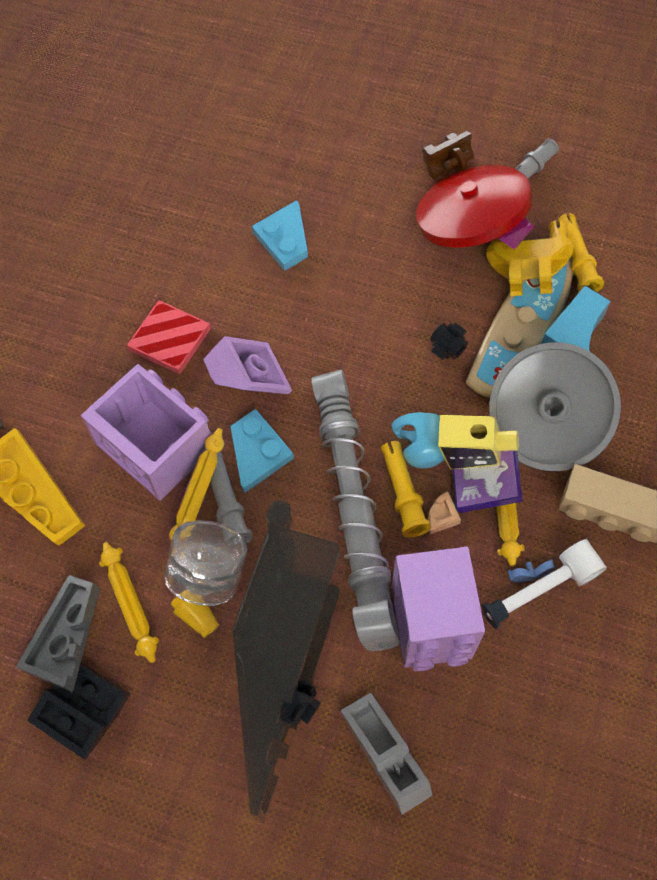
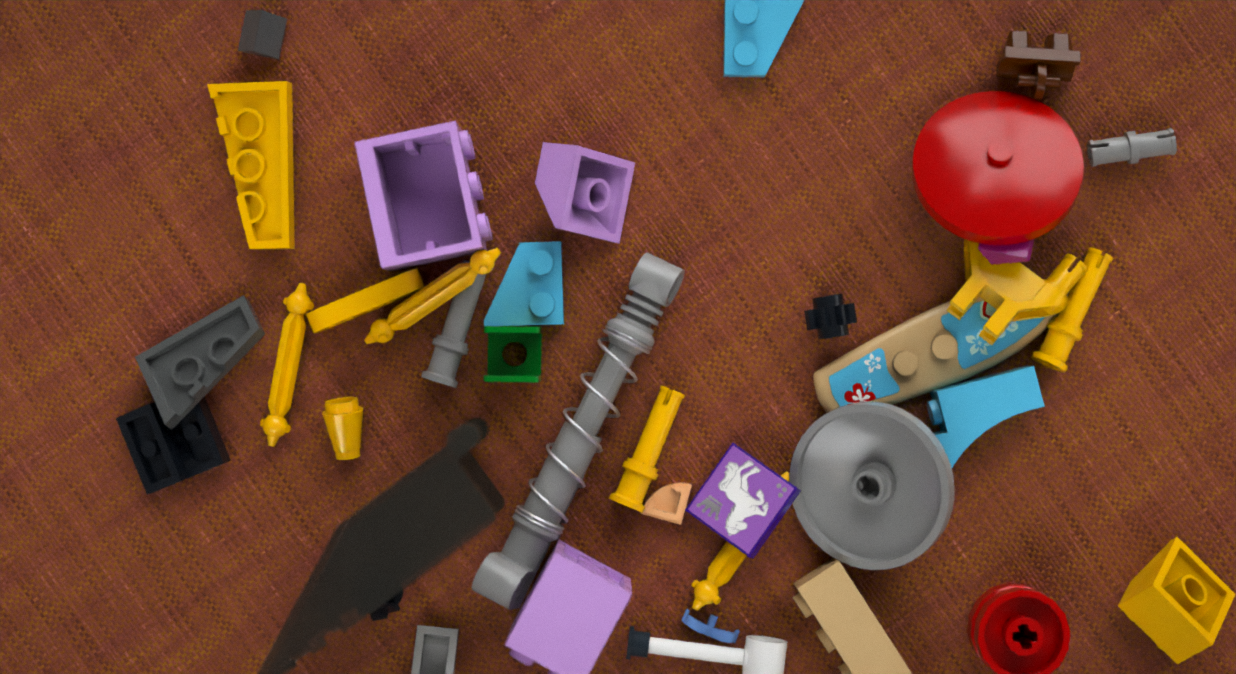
camera: 35 degrees right, 25 degrees up
(153, 525) = (365, 301): none -> yellow beam
(169, 337) = (529, 75): coral tile -> none
(205, 562) = (382, 393): clear wheel -> none
(269, 473) = (498, 369): none -> green piece
(424, 449) = (714, 420): medium azure helmet -> none
(474, 441) = (736, 460): light yellow torso -> none

